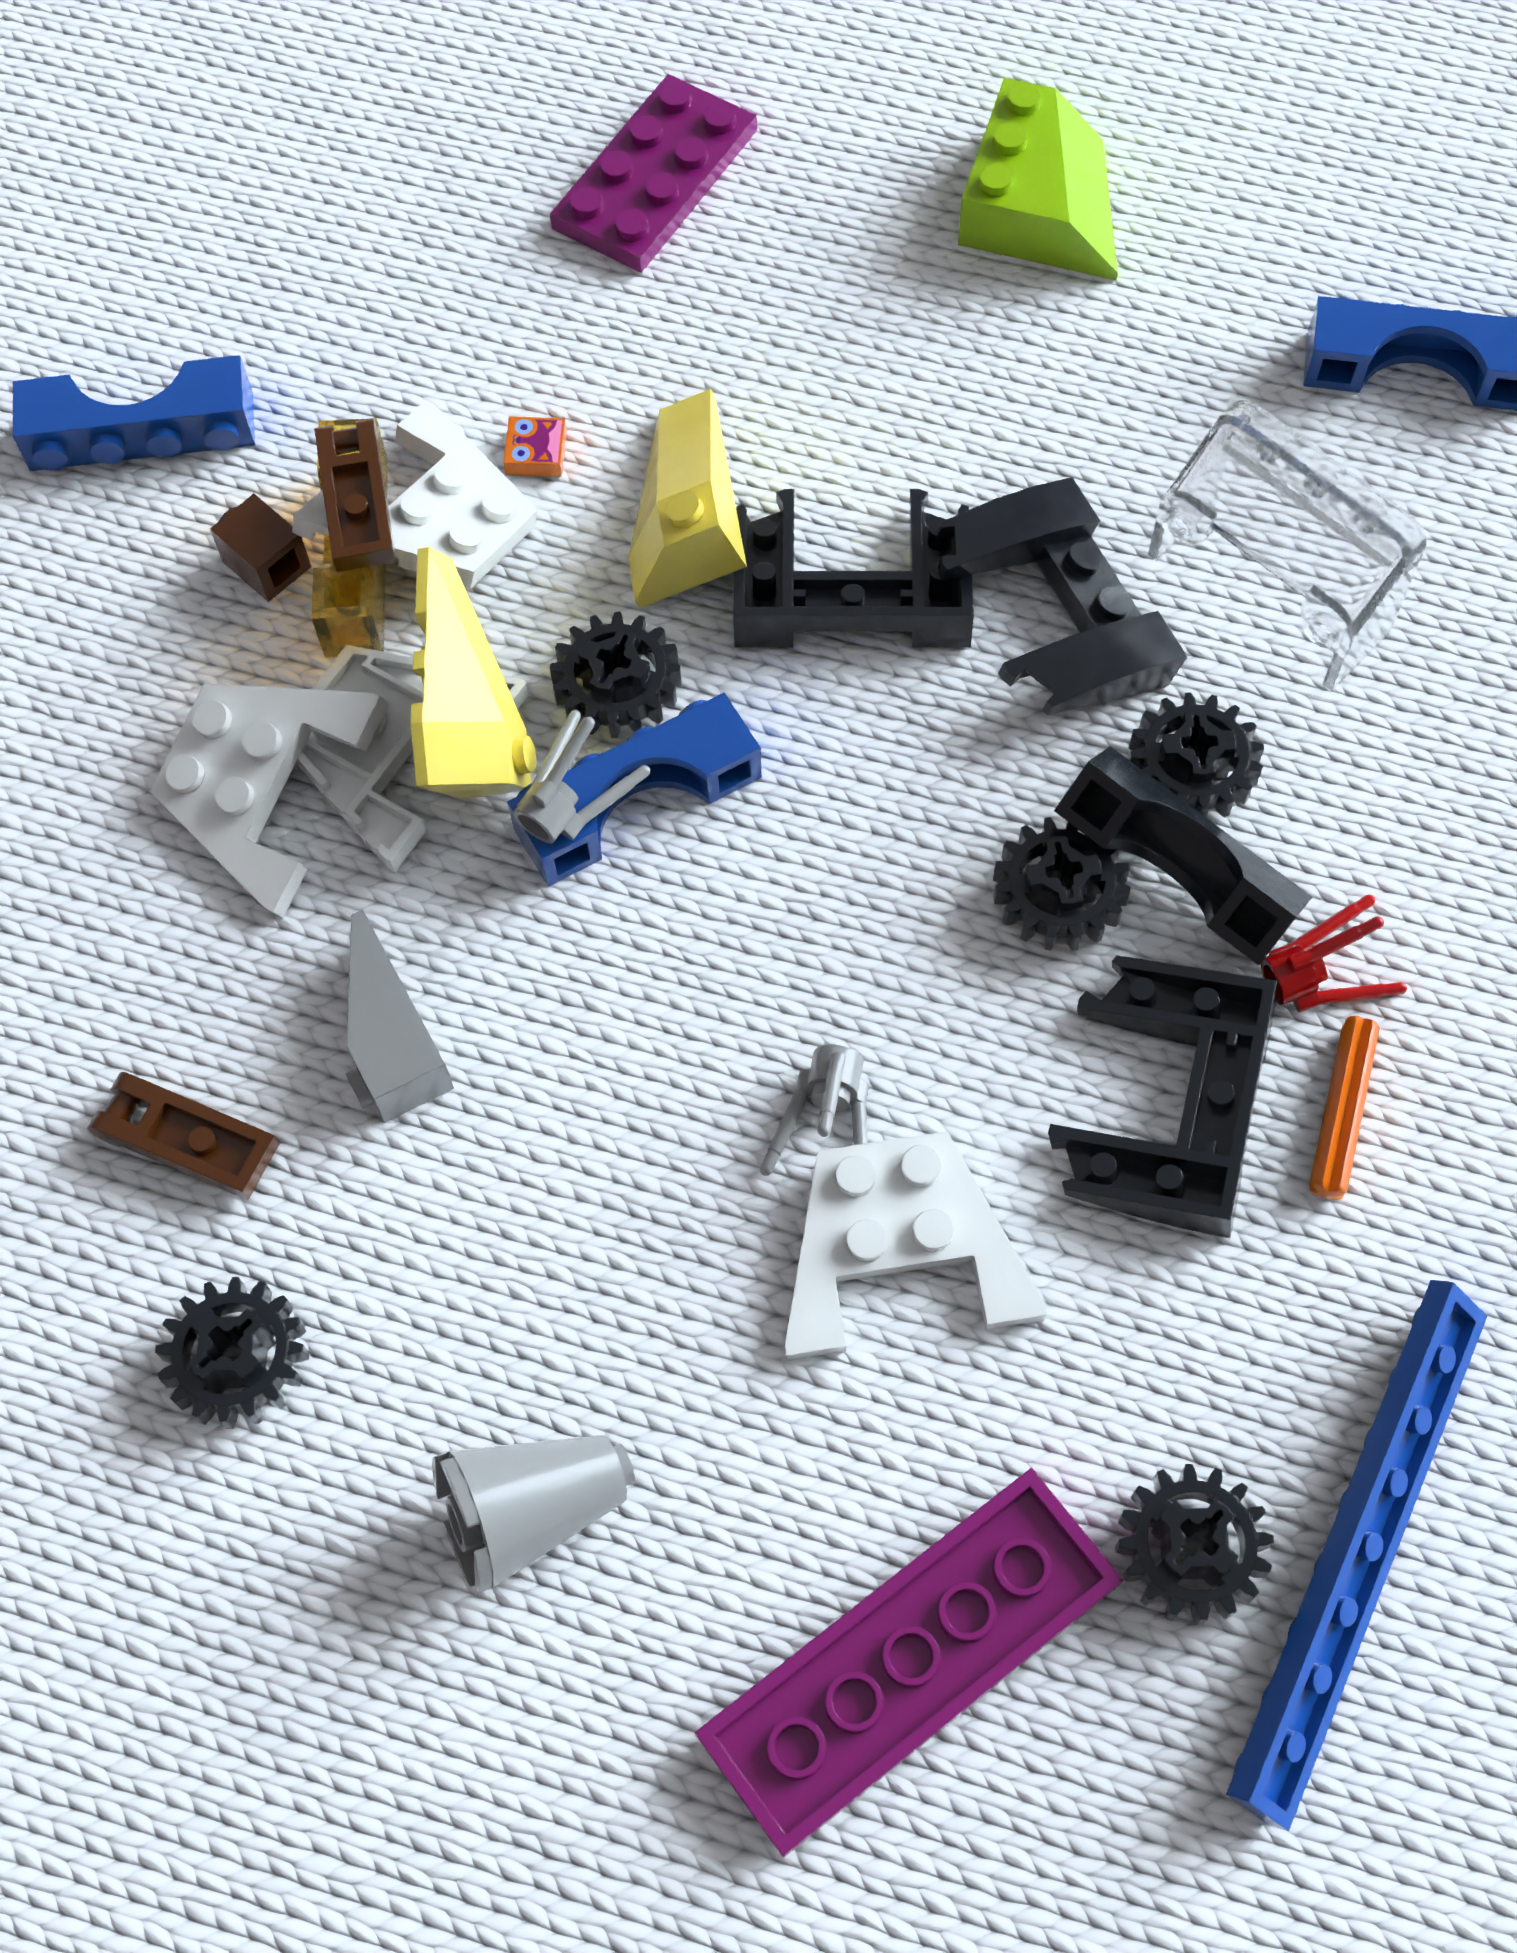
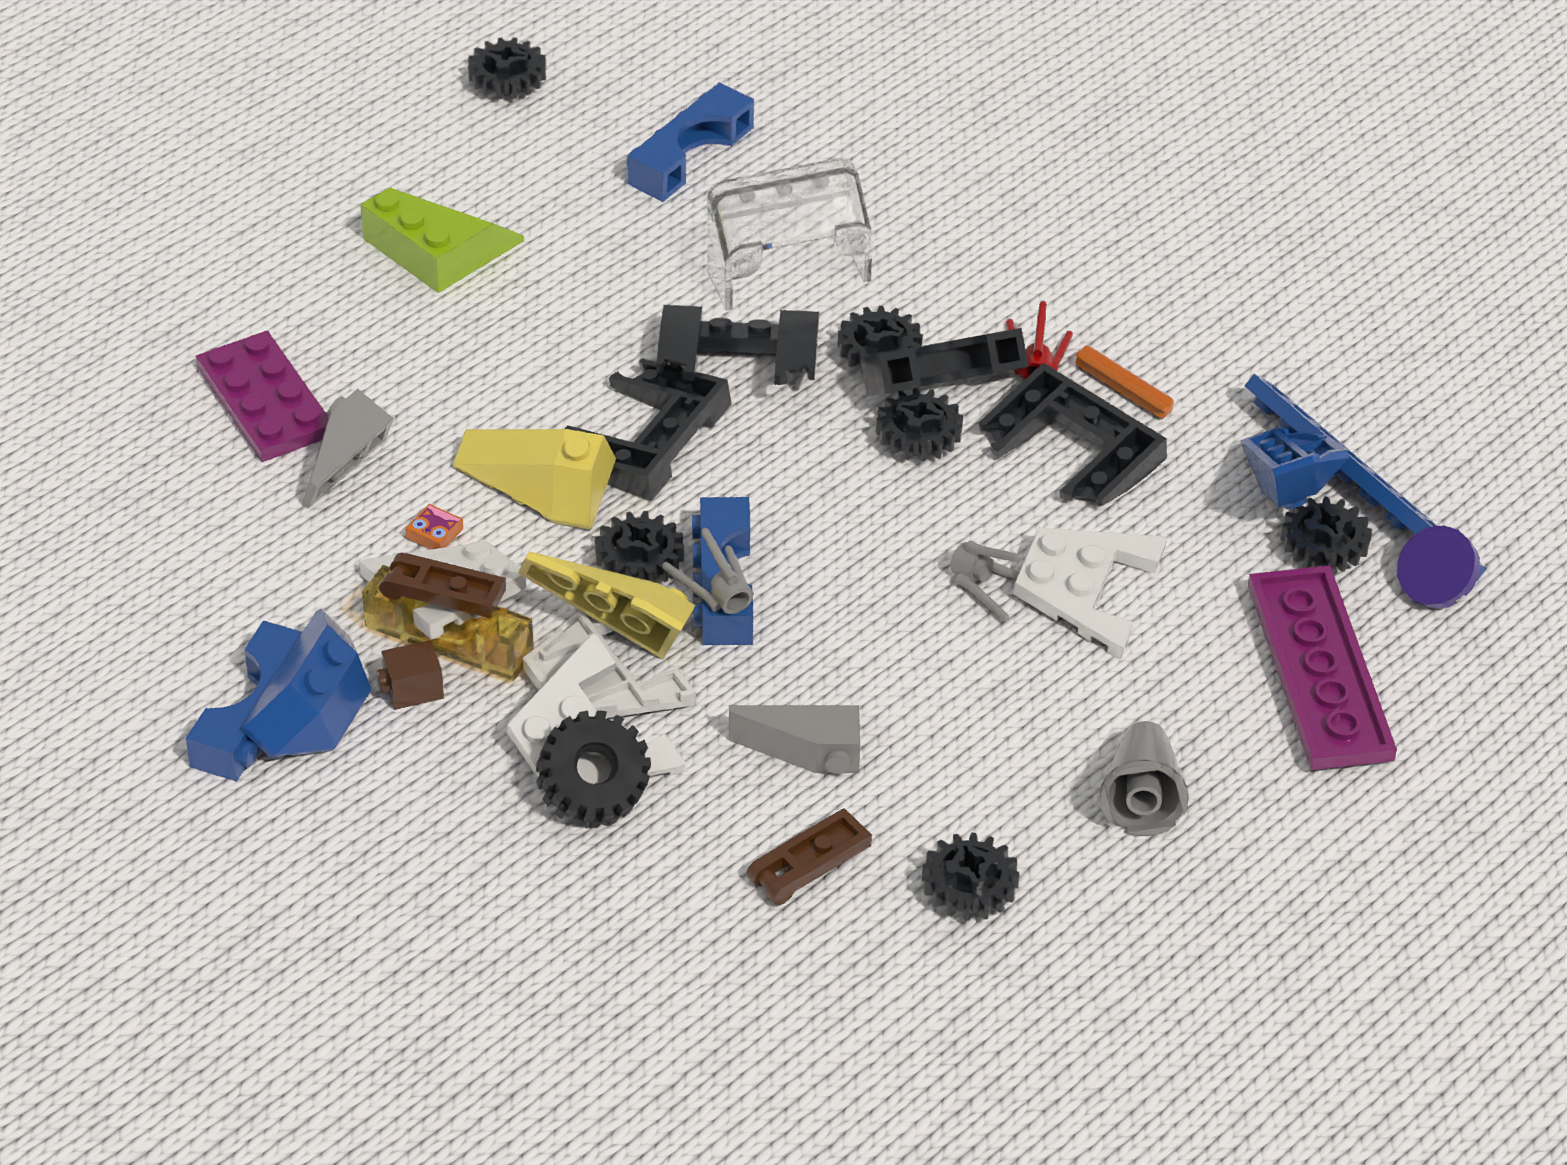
camera: 65 degrees left, 20 degrees down
(168, 463) = (310, 694): none -> blue wedge
(208, 818) = (583, 799): none -> black tyre
(602, 280) = (352, 434): none -> light grey slope
(1213, 1755) = (1438, 567): none -> dark purple tile
(1283, 1425) = (1292, 464): none -> blue wedge
(1404, 96) = (507, 68): none -> black gear

